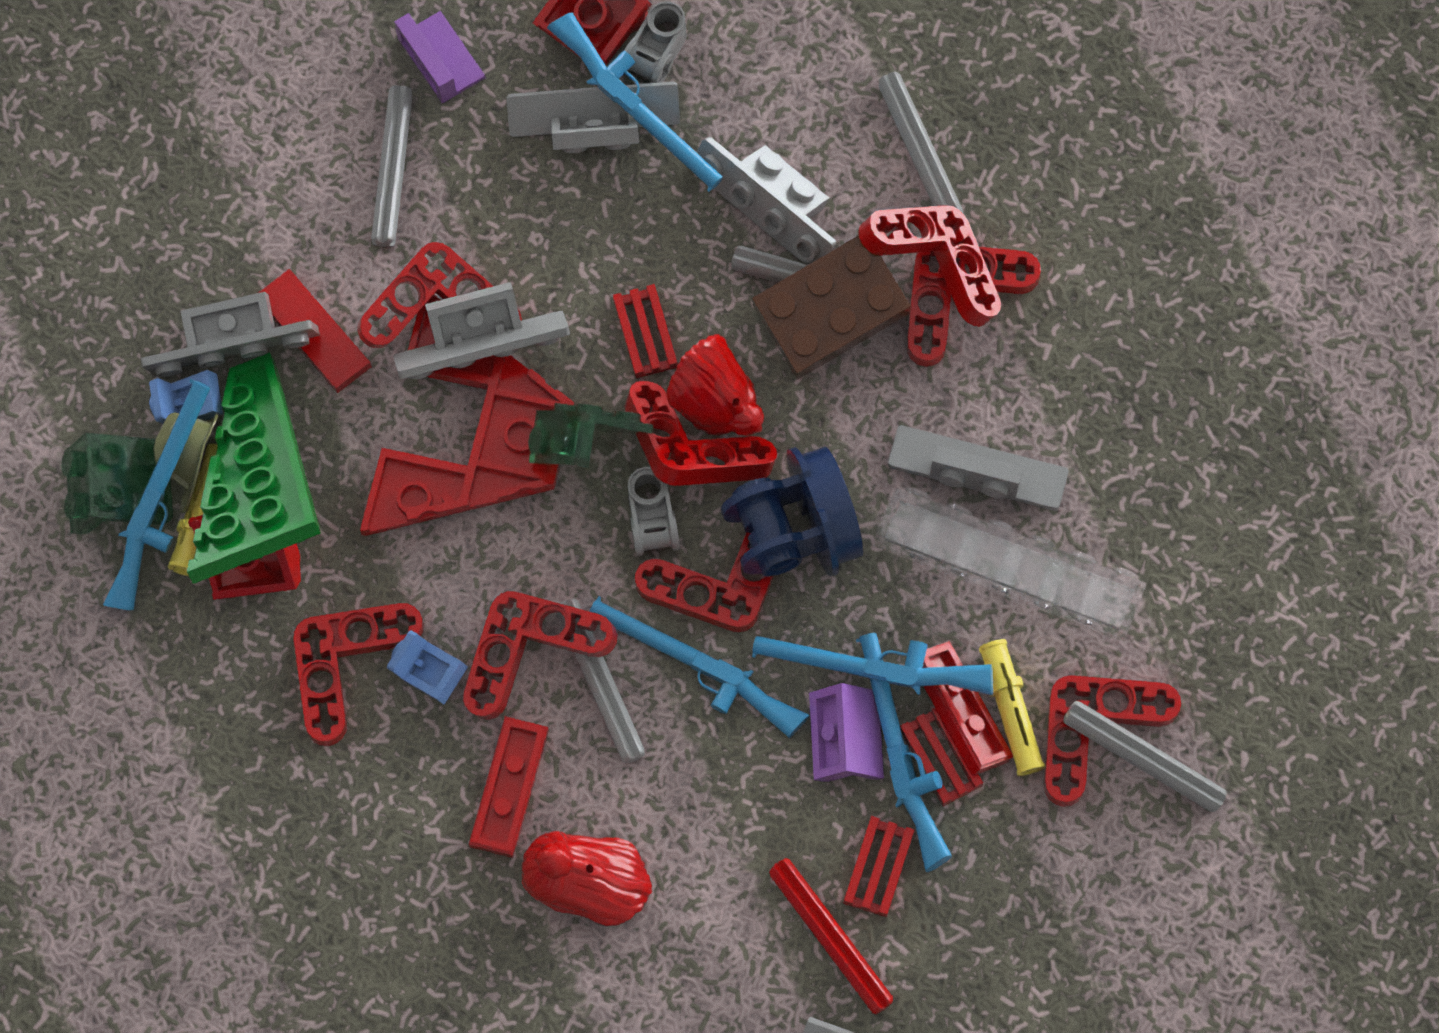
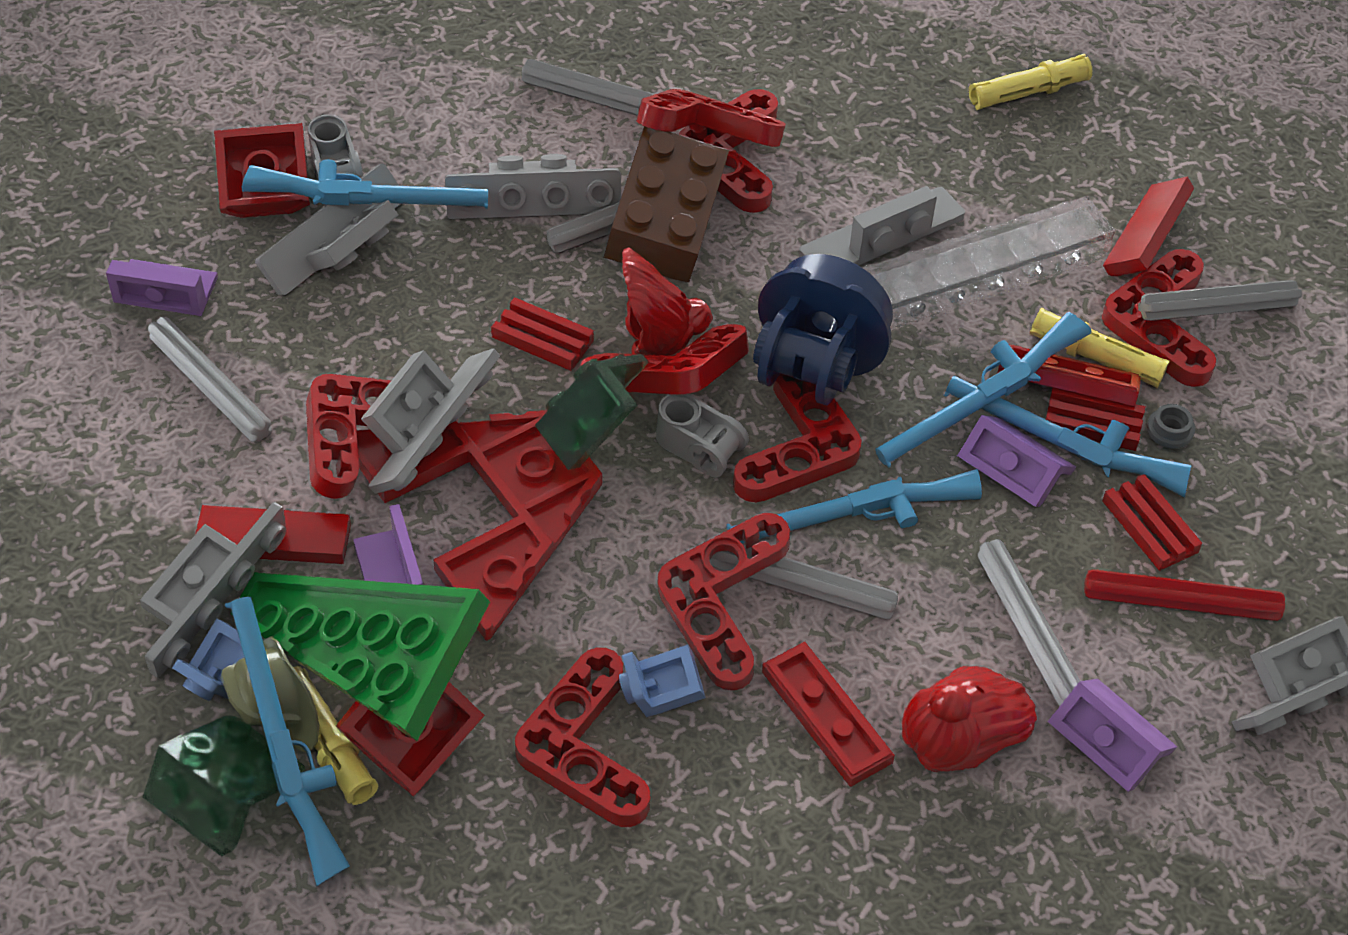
camera: 50 degrees left, 20 degrees down
(351, 430) = (388, 554): none -> medium lavender panel
(663, 974) = (1110, 733): none -> medium lavender panel
(706, 855) = (1028, 619): none -> light grey axle
(990, 802) = (1175, 417): none -> dark grey plate
(1178, 648) = (1148, 227): none -> red tile
(1250, 434) = (1046, 77): none -> light yellow pin

